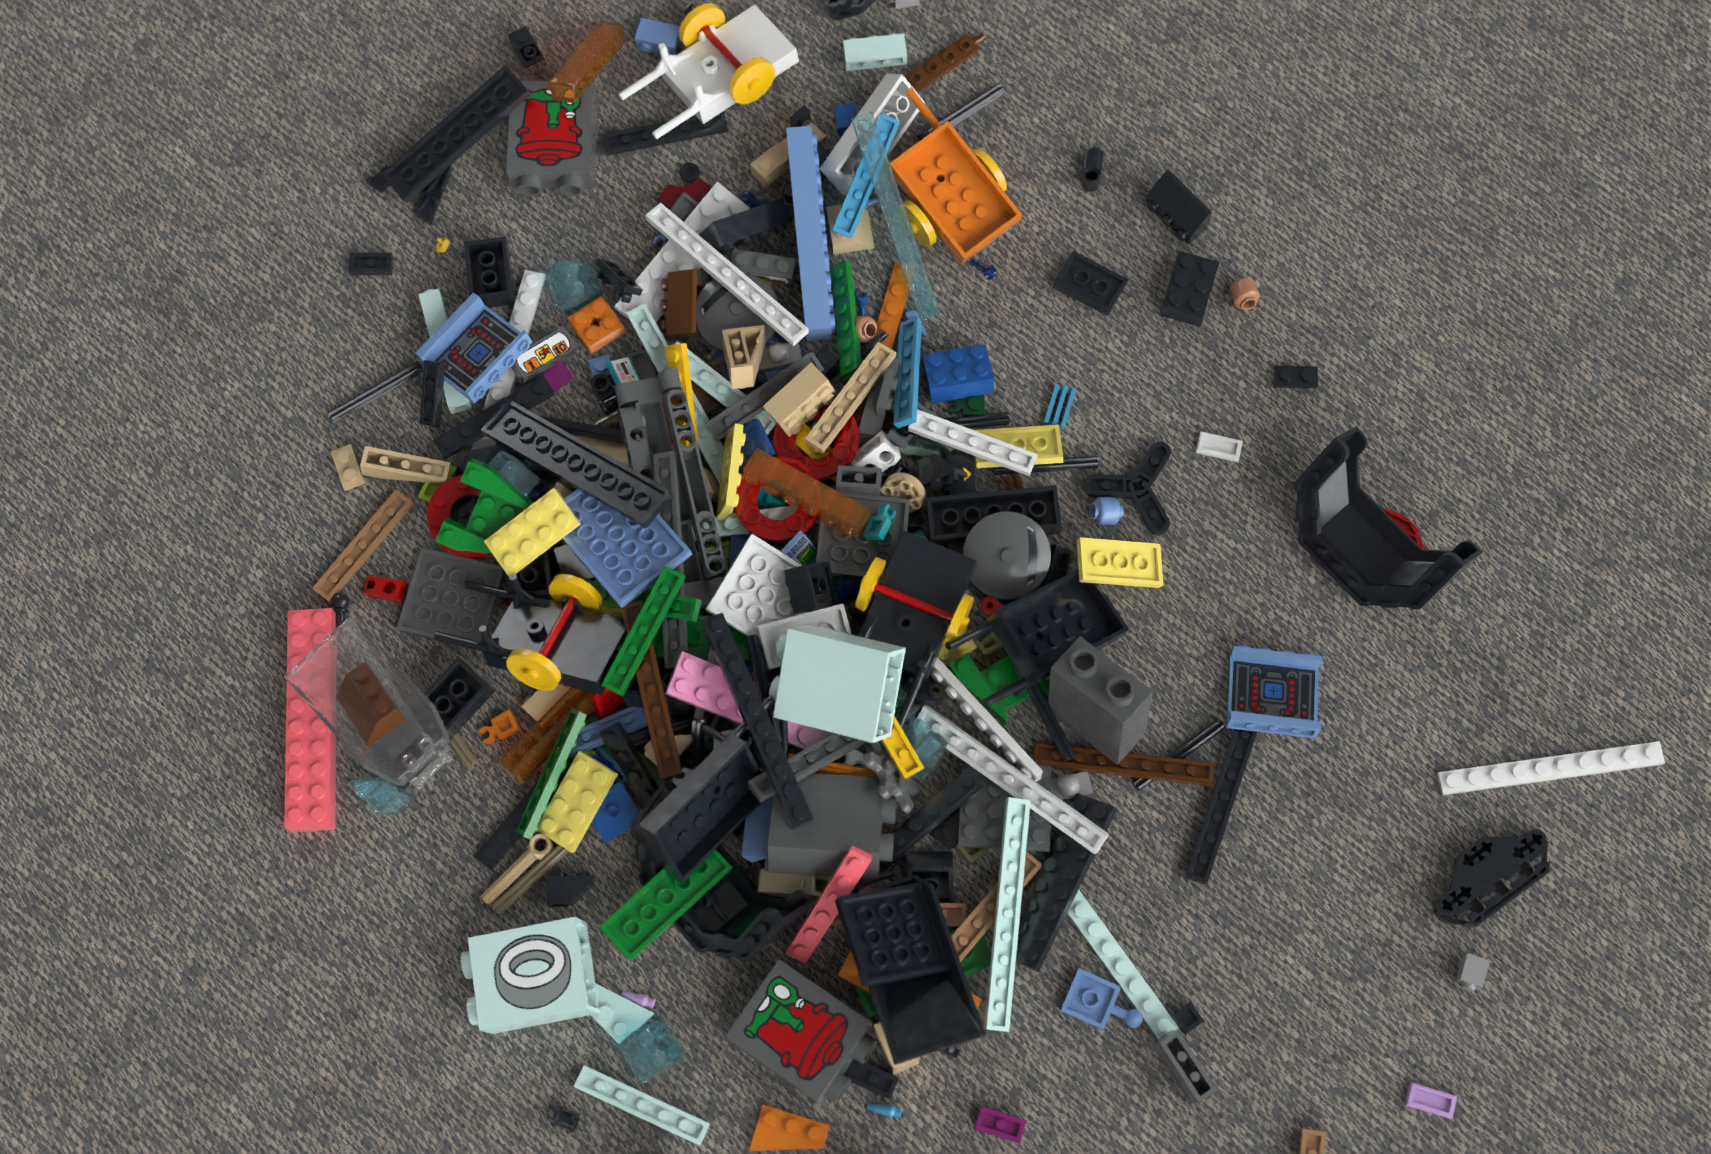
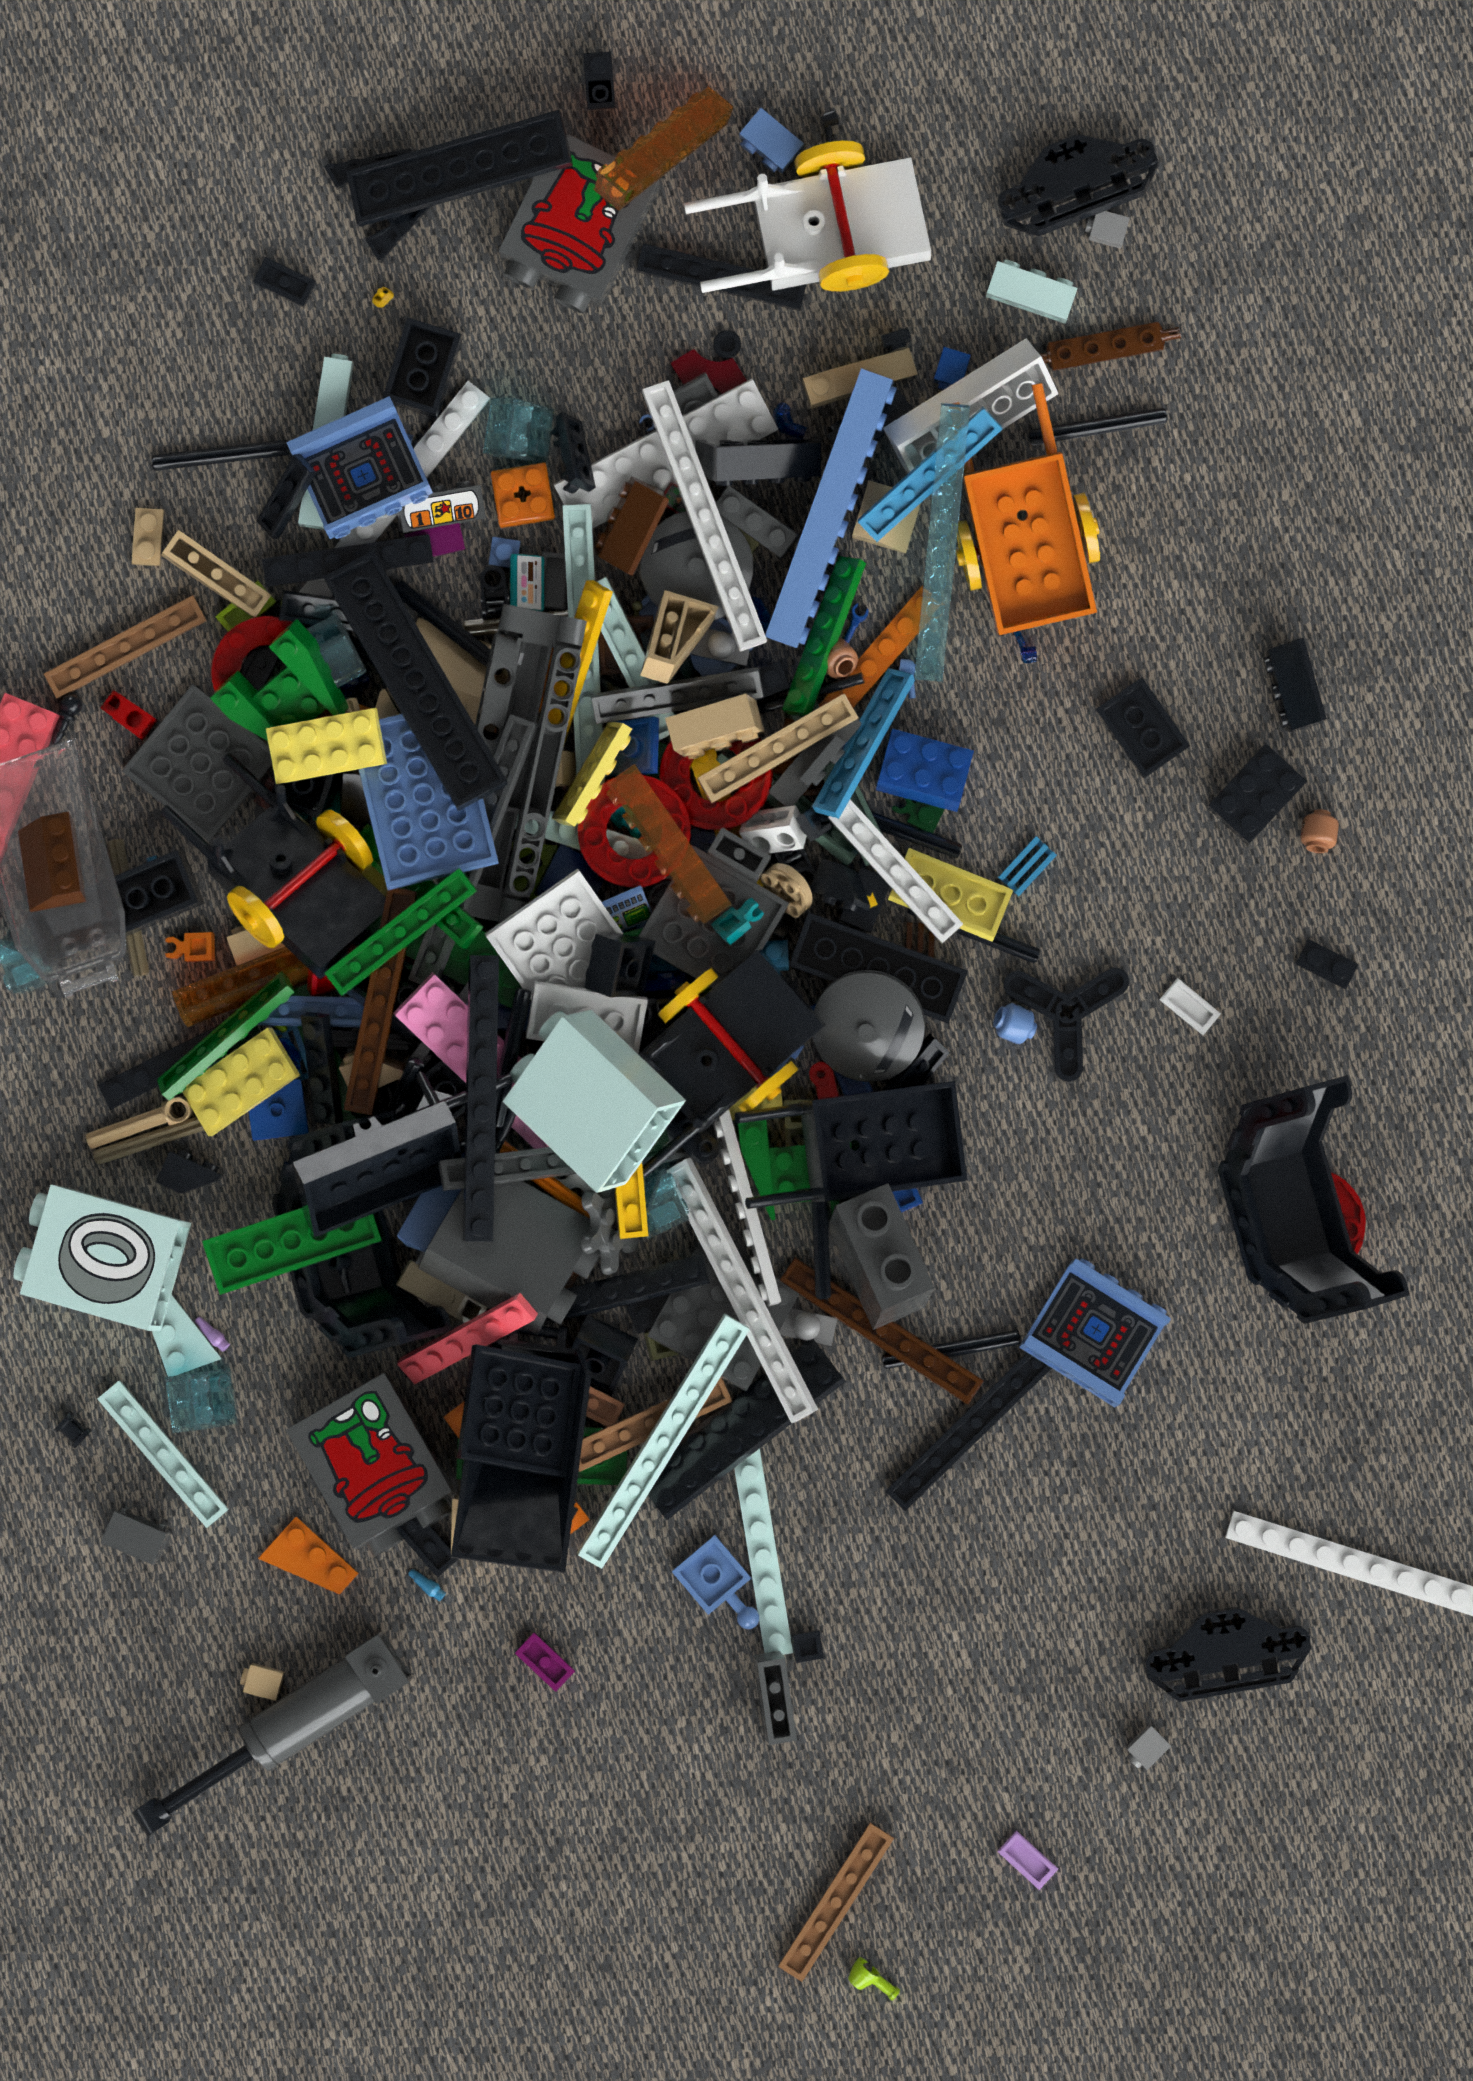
camera: 25 degrees right, 15 degrees up
(1092, 169) = (1222, 578): black piece -> none
(1119, 562) = (996, 1096): light yellow plate -> none

